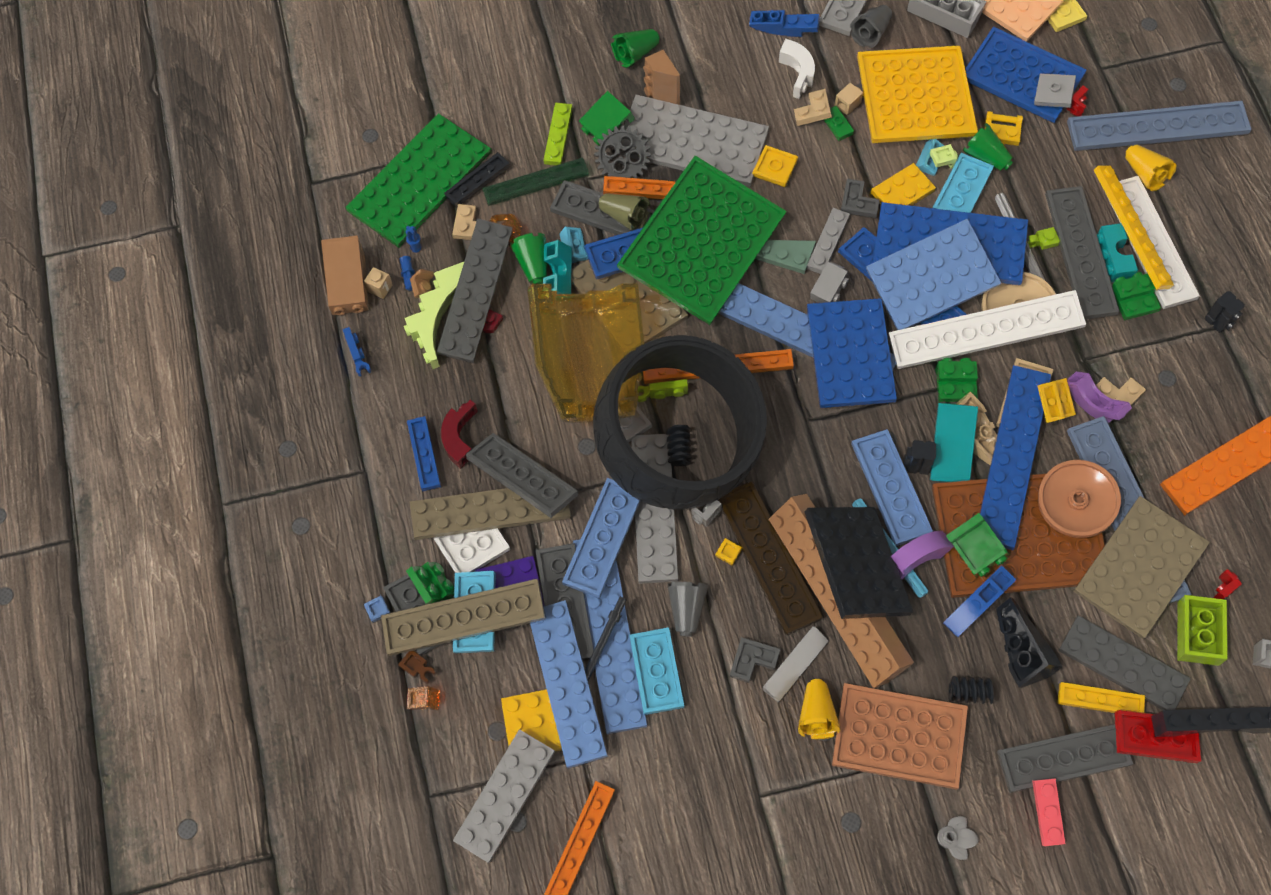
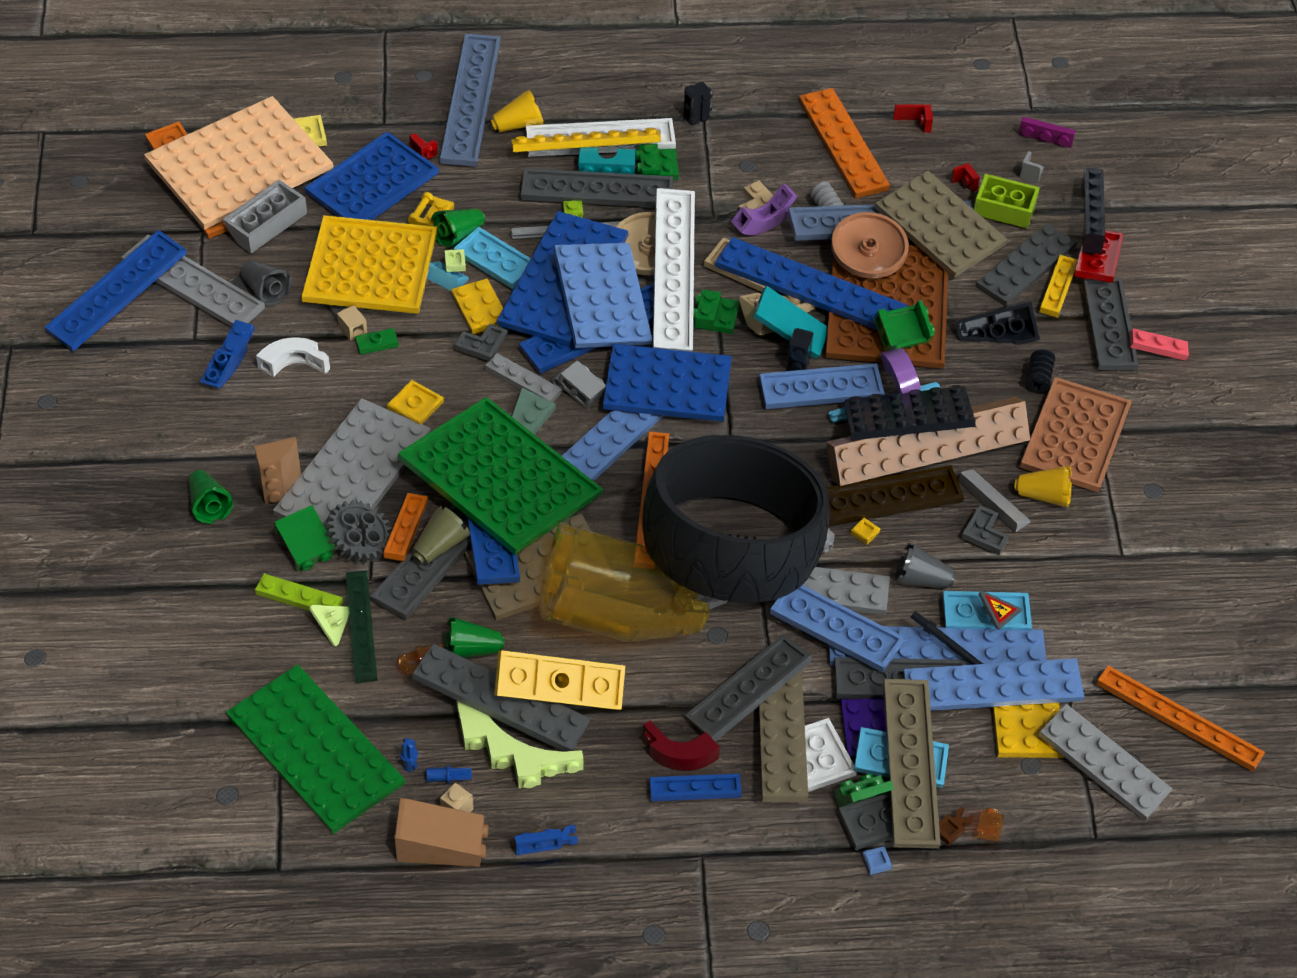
camera: 85 degrees left, 15 degrees down
(421, 282) = (473, 760): medium nougat bracket -> none
(464, 222) = (400, 707): tan plate -> none
(477, 179) = (338, 684): black plate -> none
(492, 324) = (559, 680): none -> yellow plate
(534, 158) = (331, 620): none -> yellowish green piece
(559, 257) = (496, 617): teal arch -> none
(574, 238) = (458, 606): medium azure slope -> none
(649, 677) = (998, 609): none -> piece
(816, 111) = (356, 351): tan plate -> none
(960, 837) = (1175, 414): light grey plate -> none
(979, 601) = (958, 344): blue slope -> none
(1055, 90) = (408, 157): light grey plate -> none
(1056, 400) = (760, 239): yellow slope -> none
(1140, 453) = (824, 195): none -> light grey piece

